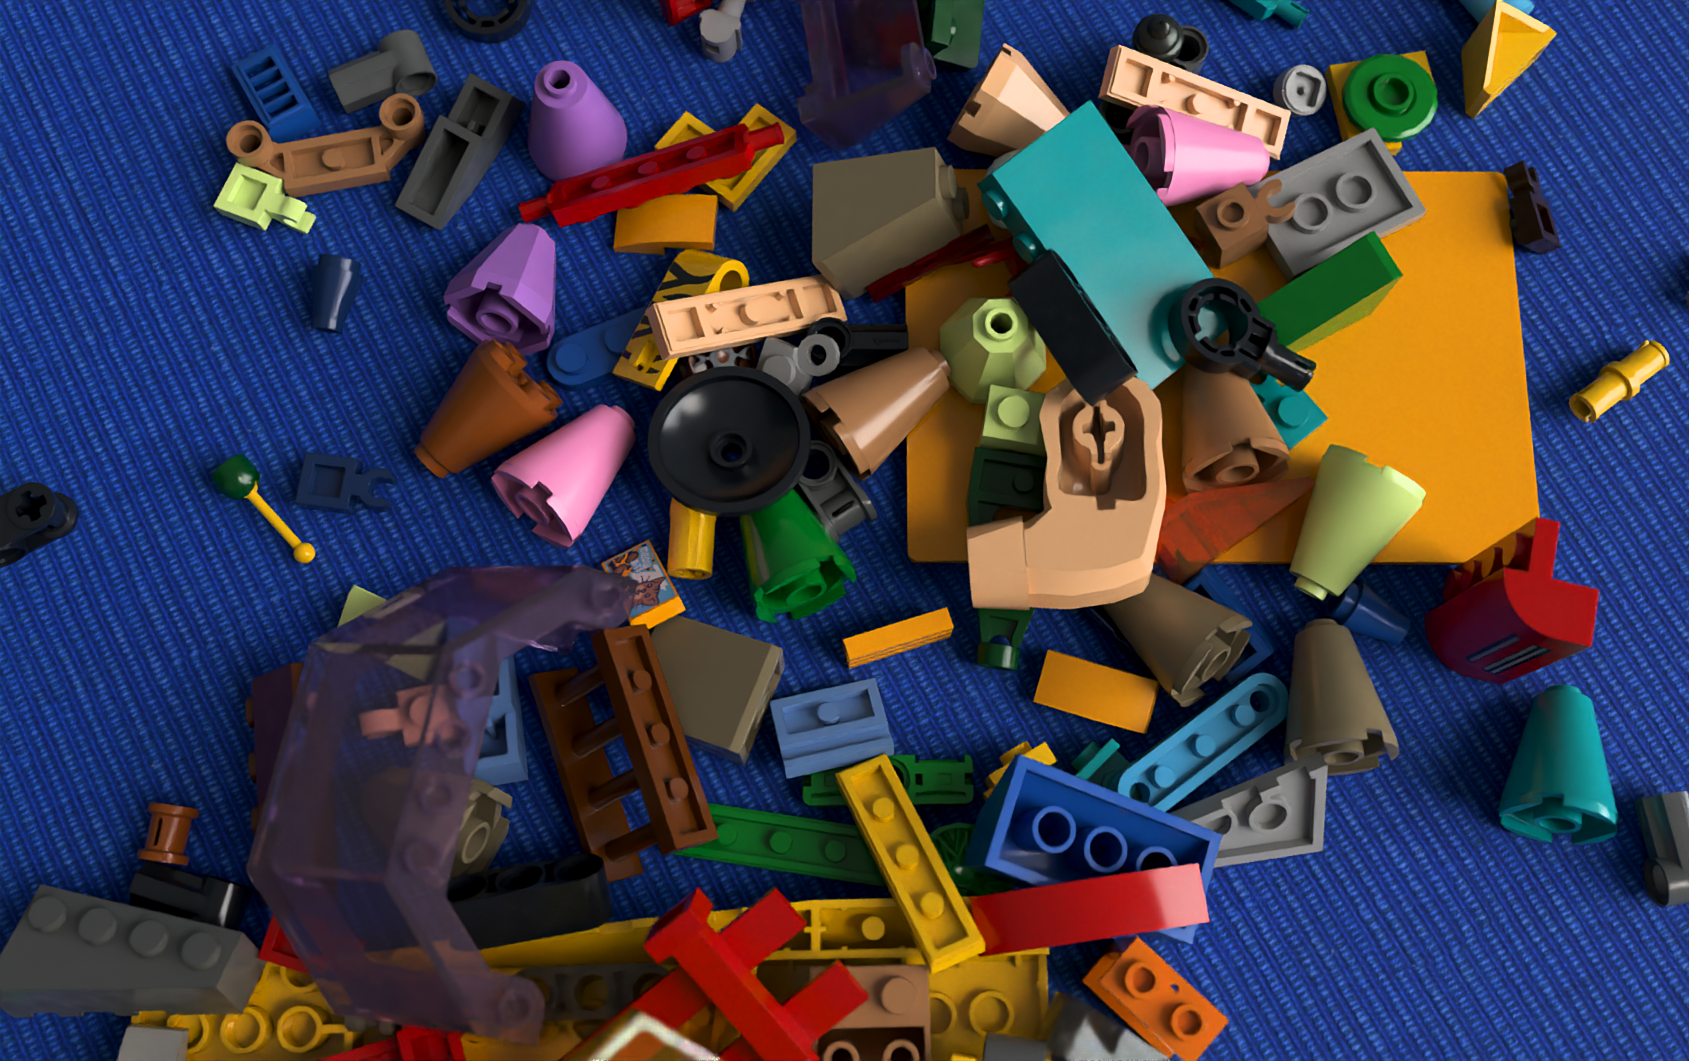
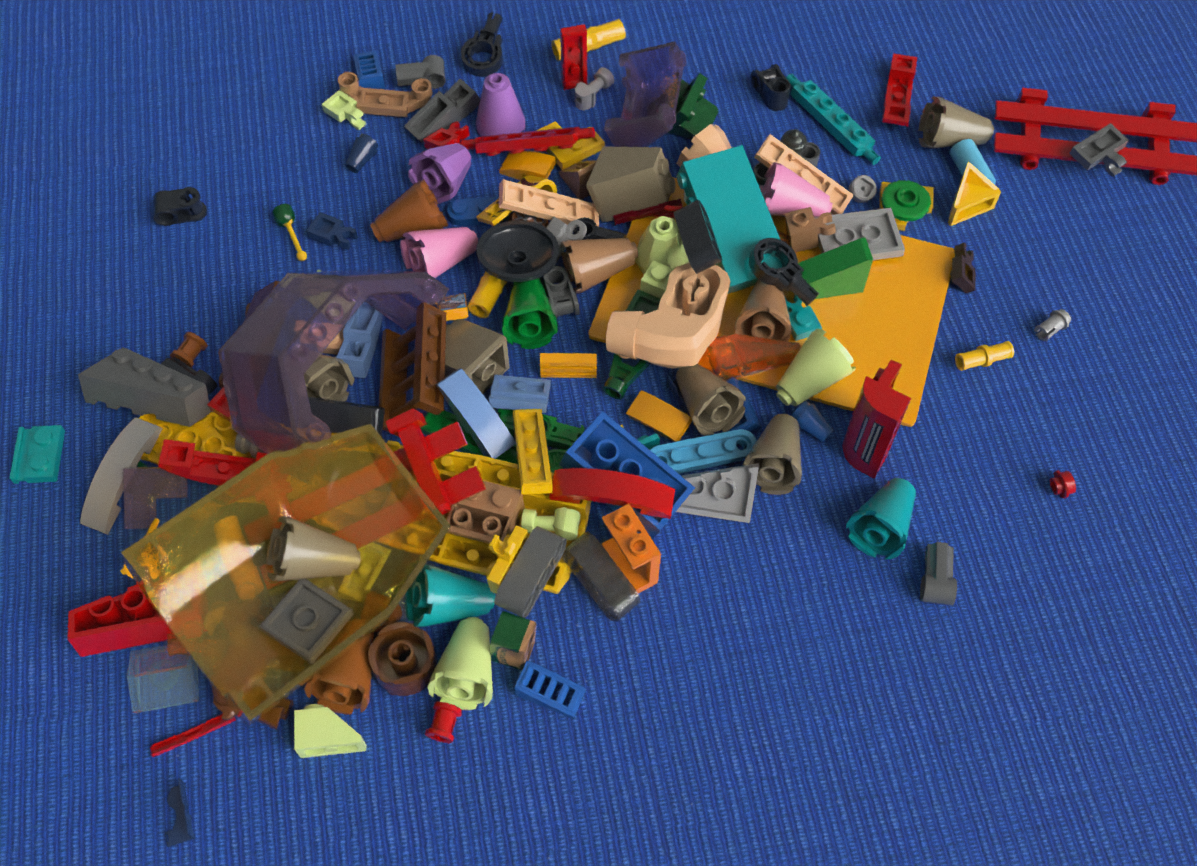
camera: 20 degrees right, 15 degrees down
(488, 212) = (446, 137): none -> red plate
(776, 219) = (577, 177): none -> medium nougat slope
(778, 818) = (476, 414): none -> medium blue slope
(1011, 986) = (564, 522): none -> yellowish green leg

